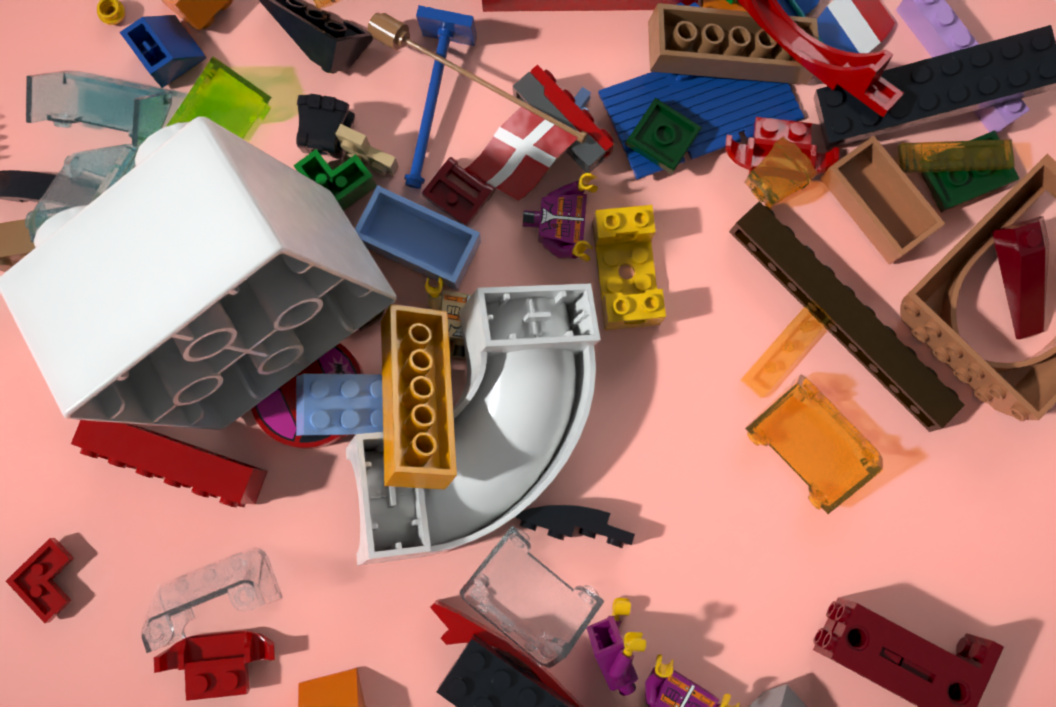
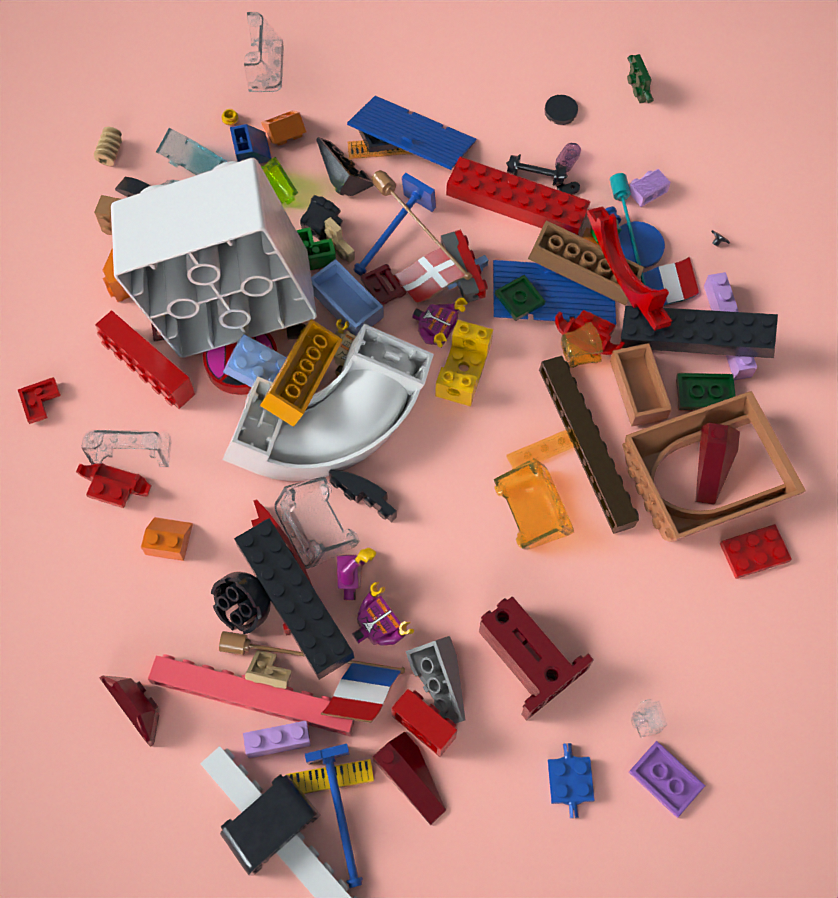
camera: 25 degrees right, 15 degrees down
(956, 156) = (700, 378): clear yellow tile -> none

